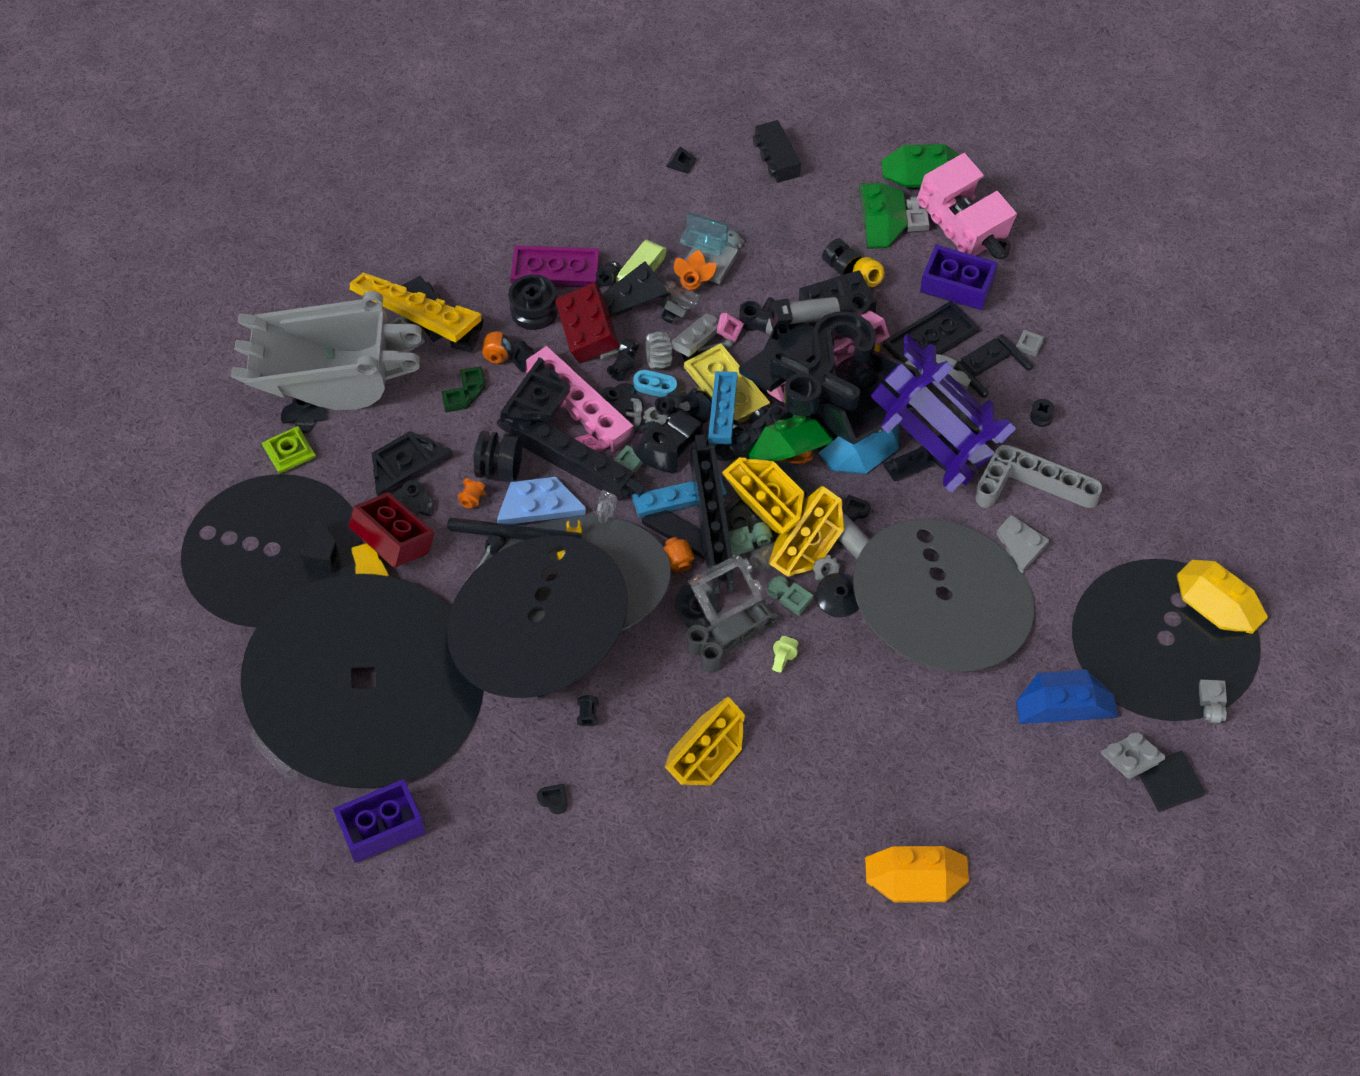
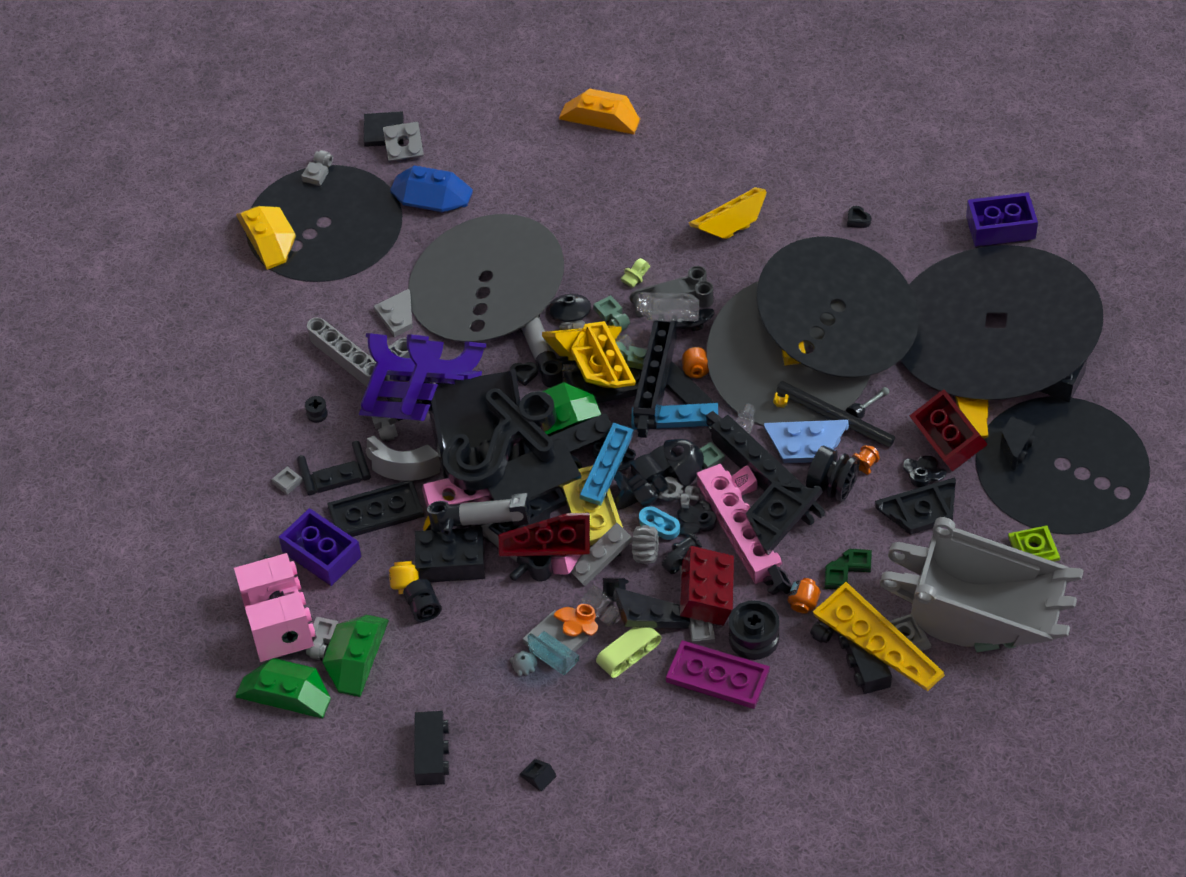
camera: 160 degrees left, 5 degrees down
(609, 270) = (664, 644): black bush -> none
(732, 321) = (555, 536): none -> dark red wedge

